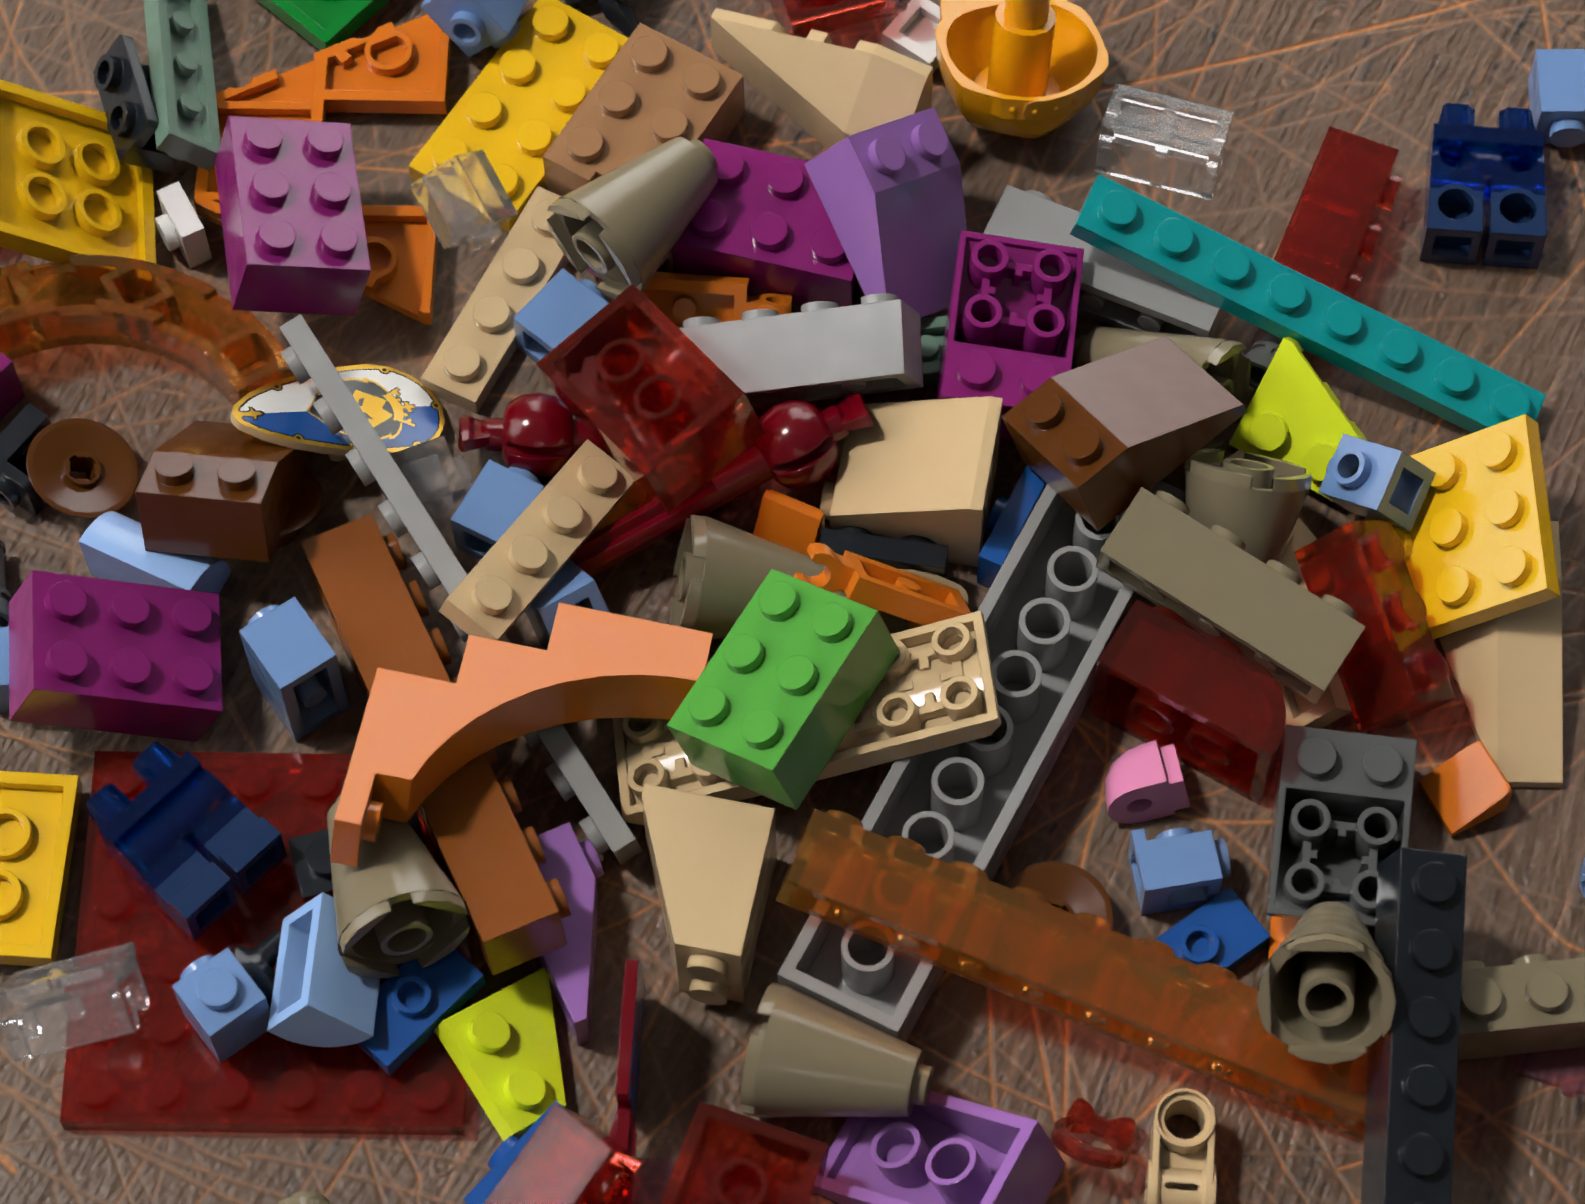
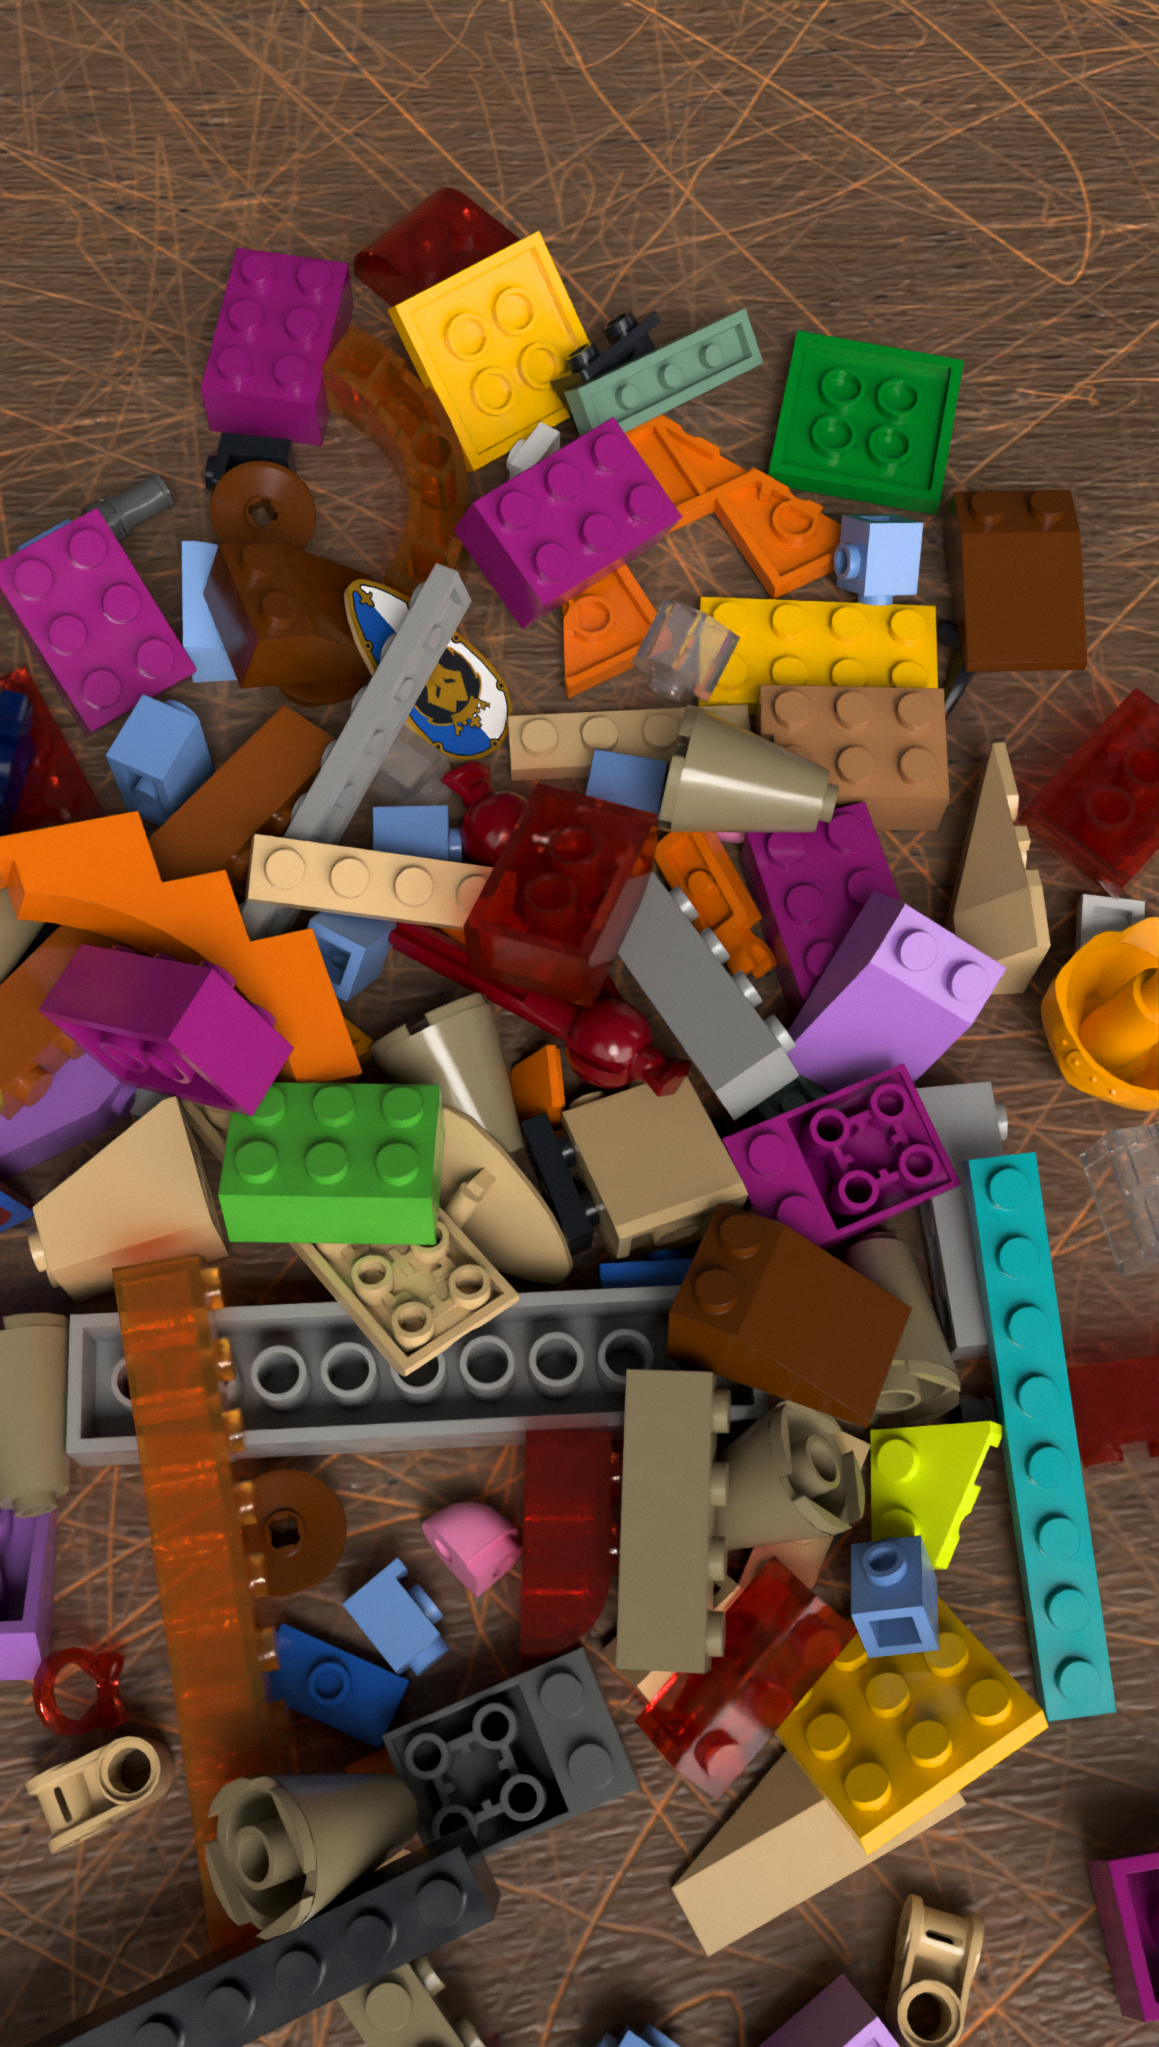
camera: 55 degrees right, 5 degrees up
(591, 744) = (168, 1026): none -> magenta brick
(885, 587) = (501, 1199): orange plate -> none
(1466, 789) = (640, 1859): orange slope -> none

